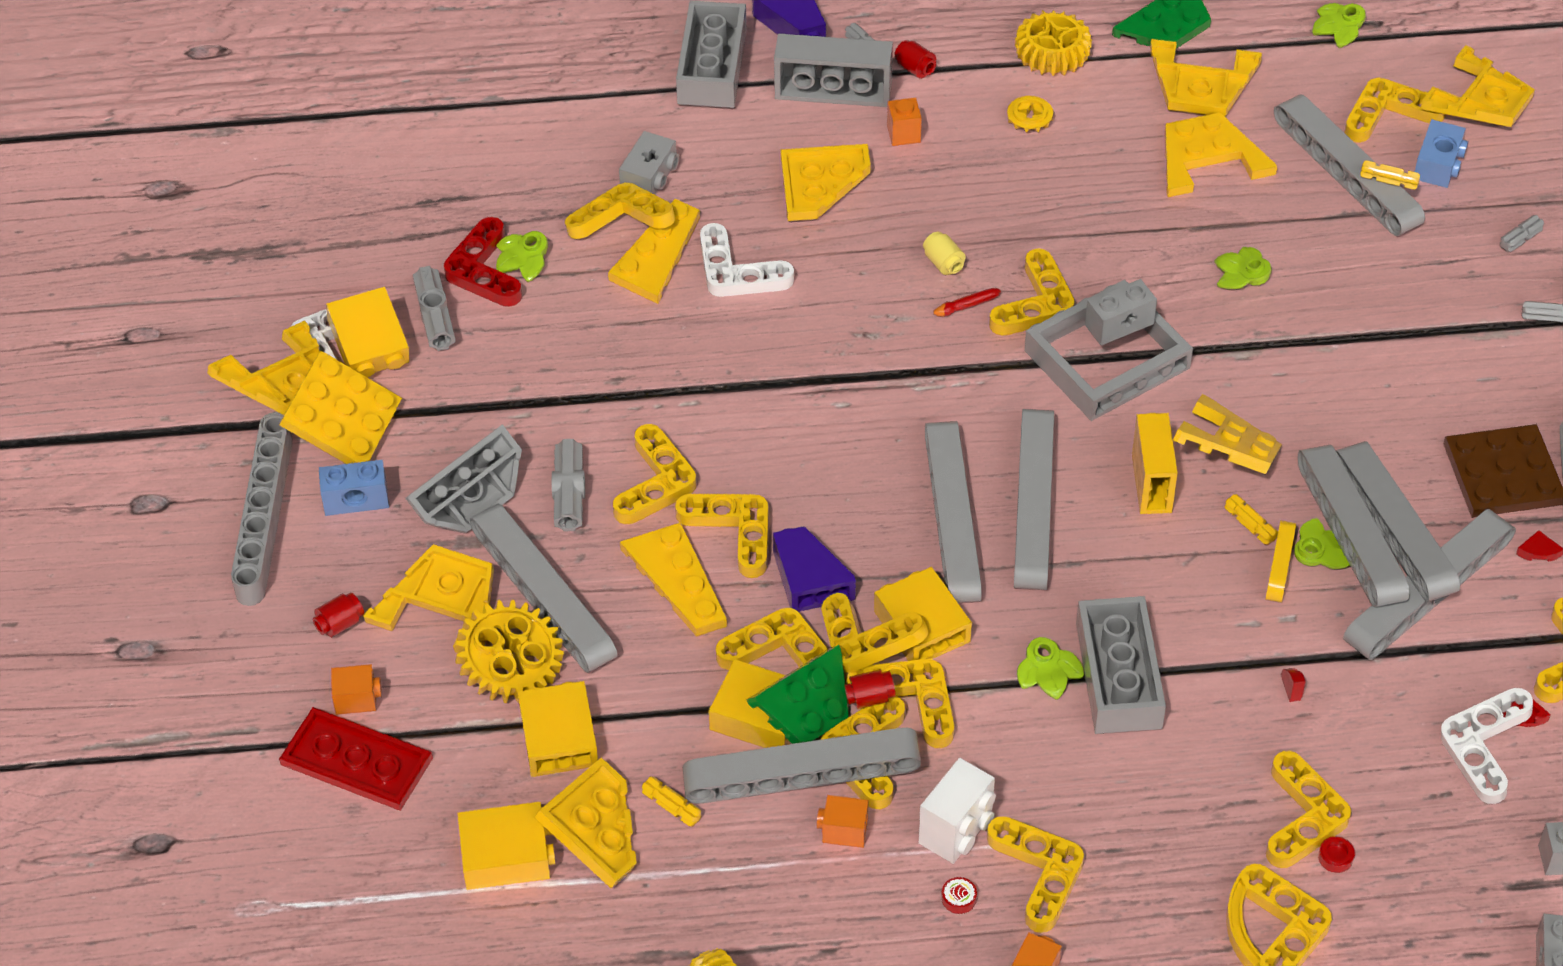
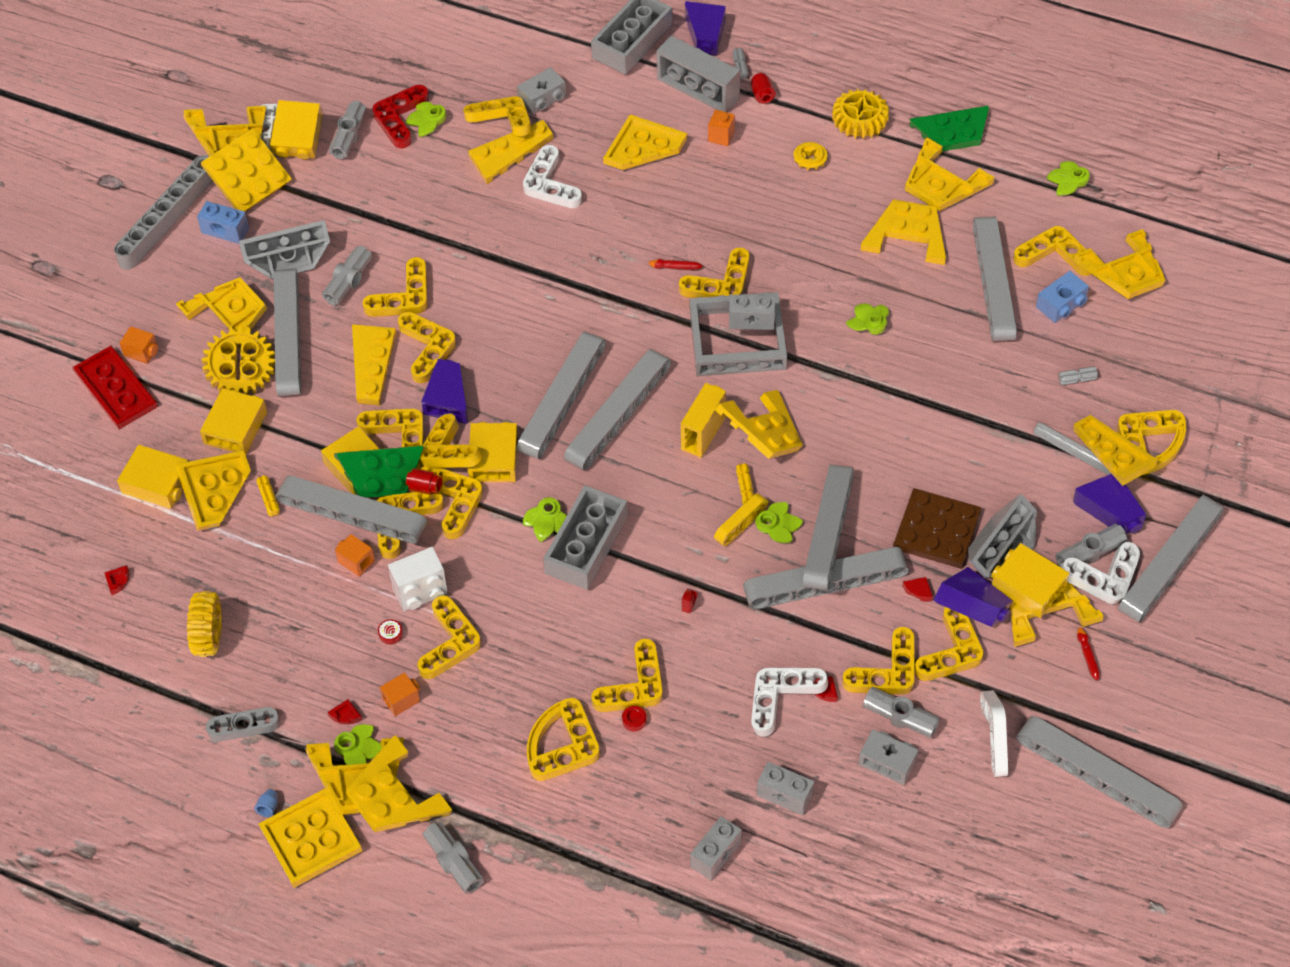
camera: 30 degrees right, 5 degrees up
(338, 614) = (161, 296): red brick -> none
(944, 253) = (681, 226): light yellow brick -> none
(1353, 526) = (799, 517): light grey beam -> none
(1390, 175) = (1008, 296): yellow axle -> none

